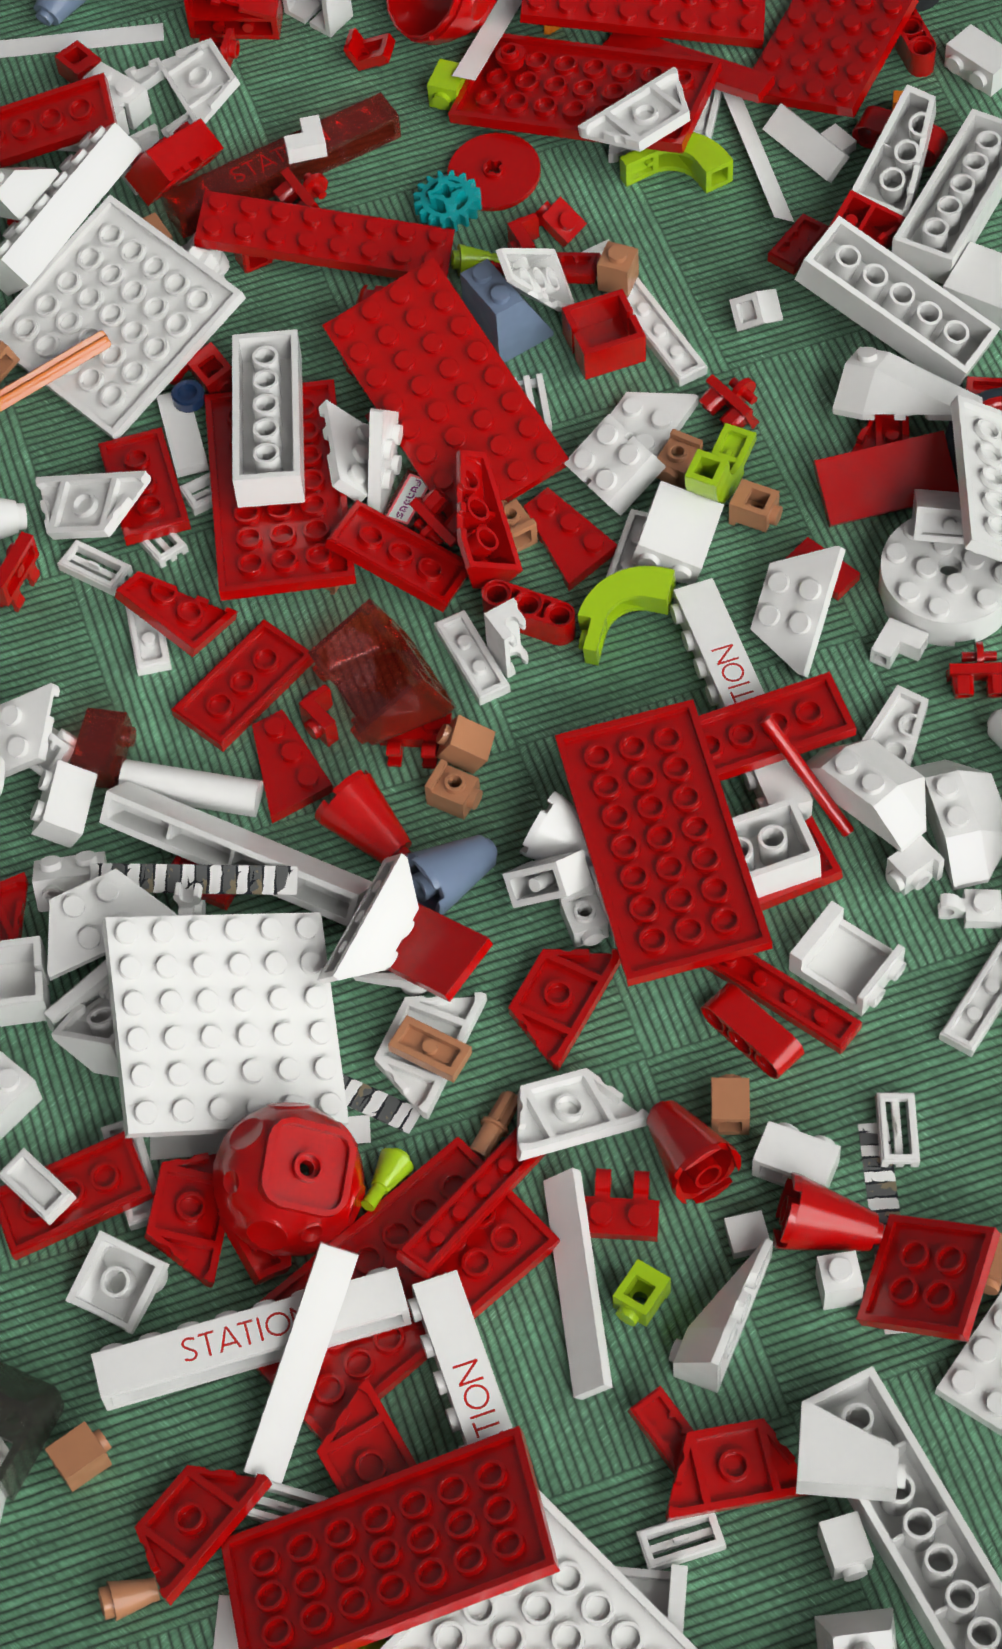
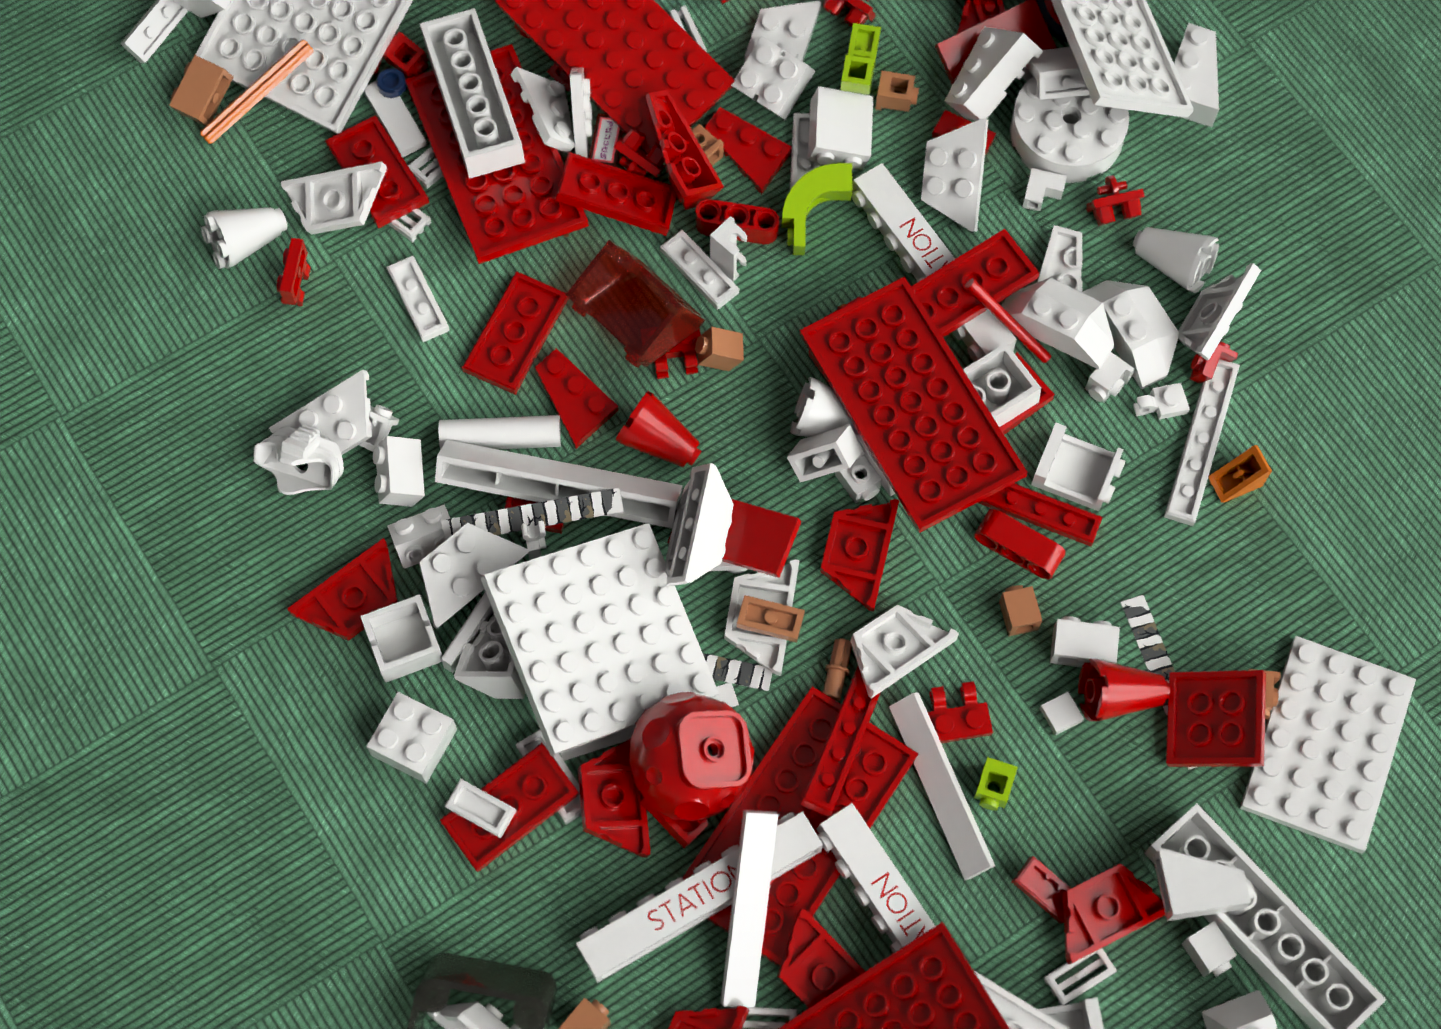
camera: 20 degrees left, 10 degrees up
(90, 571) = (374, 267): white tile -> none
(104, 744) = (415, 411): clear red brick -> none
(118, 1281) = (573, 872): white slope -> none
(179, 617) = (441, 283): red wing -> none
(315, 718) = (589, 353): red bracket -> none
(390, 1170) = (765, 726): lime cone -> none
(450, 870) = (741, 460): sand blue cone -> none
(453, 790) = (720, 399): nougat brick -> none
(677, 457) = (823, 59): nougat brick -> none
(691, 1153) = (1000, 656): red cone -> none
(714, 1334) = (1063, 809): white wedge -> none
(839, 1280) = (1146, 736): white brick -> none
(865, 499) = (989, 71): none -> white wedge
(898, 1157) = (1150, 624): white tile -> none

